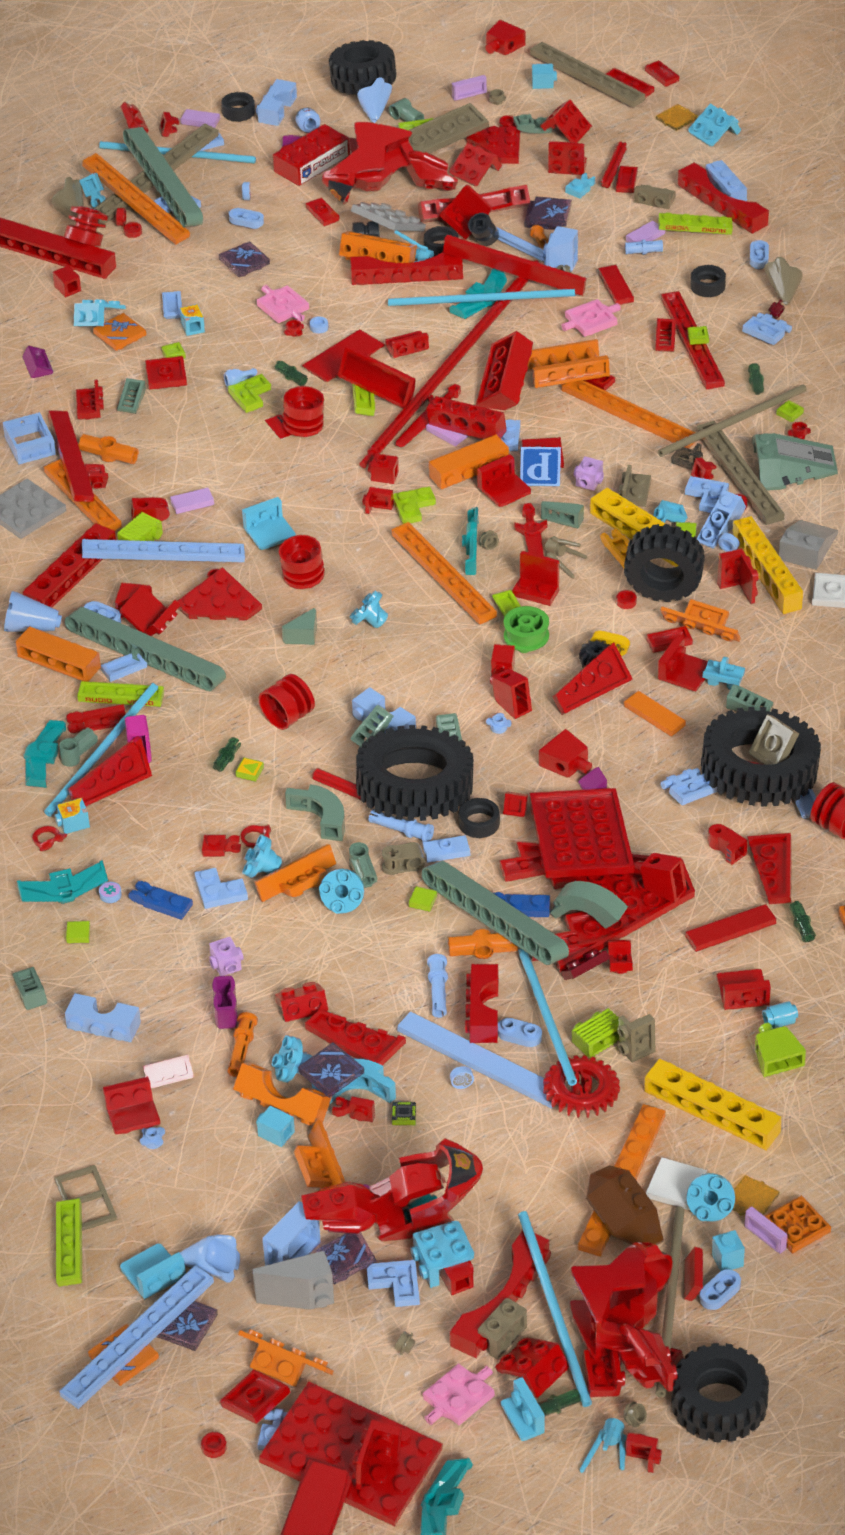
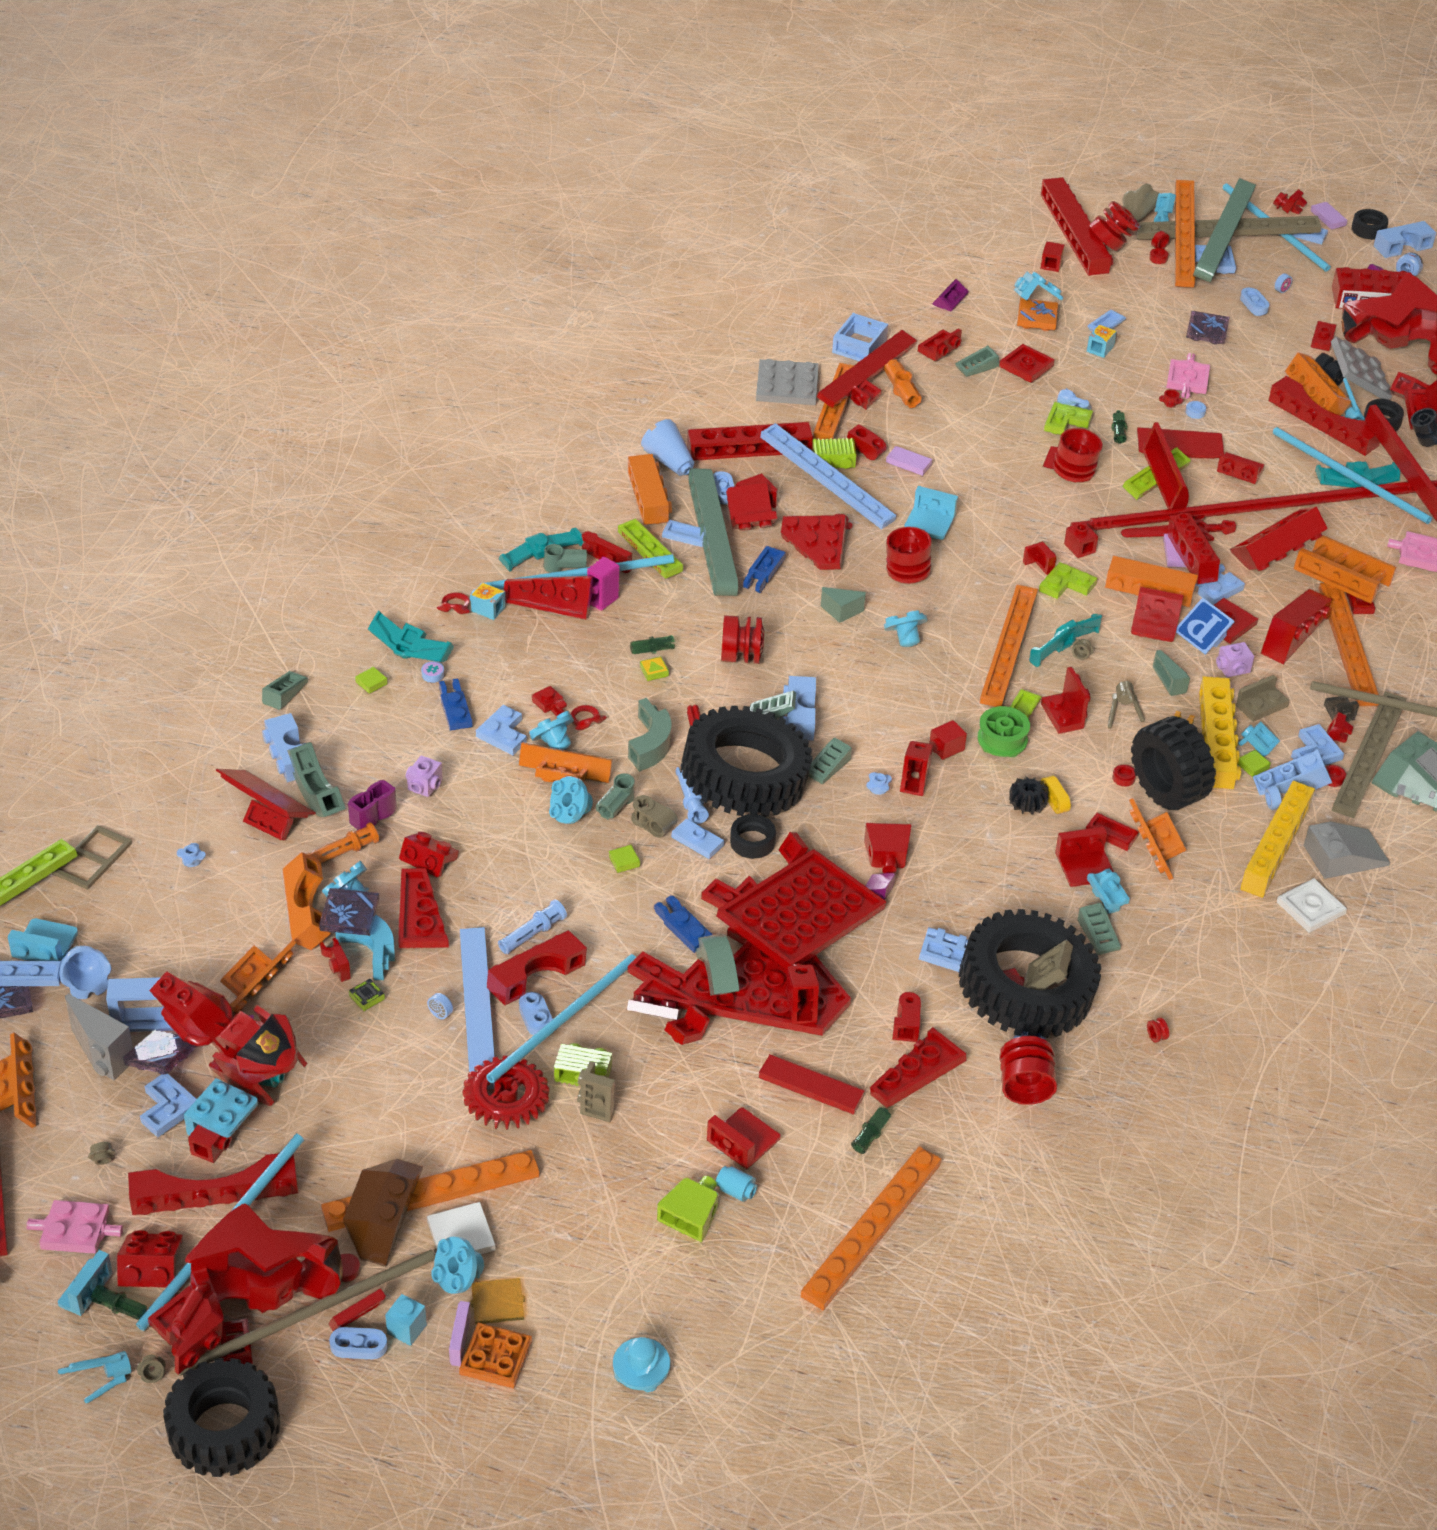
camera: 45 degrees right, 0 degrees up
(131, 1105) = (208, 822): red bracket -> none
(133, 116) = (1269, 182): red bracket -> none
(140, 1057) = (265, 793): none -> red piece
(155, 129) = (1280, 200): none -> red plate
(164, 1026) = (315, 788): none -> sand green arch
(173, 350) = (1058, 353): lime tile -> none
(215, 645) = (764, 568): none -> blue hinge
(275, 1126) = (269, 920): medium azure brick -> none
(480, 944) = (609, 926): orange piece -> none
(495, 913) = (641, 910): sand green beam -> none
(504, 1326) = (169, 1209): dark tan bracket -> none
(531, 530) = (1127, 669): red sword -> none
(591, 423) = (1295, 624): none -> red wedge
(597, 678) = (1001, 811): red wing -> none
(644, 1448) = (115, 1410): red bracket -> none
(655, 713) = (1010, 875): orange tile -> none
(713, 1104) = (577, 1183): yellow brick -> none
(735, 570) = (1235, 820): red bracket -> none

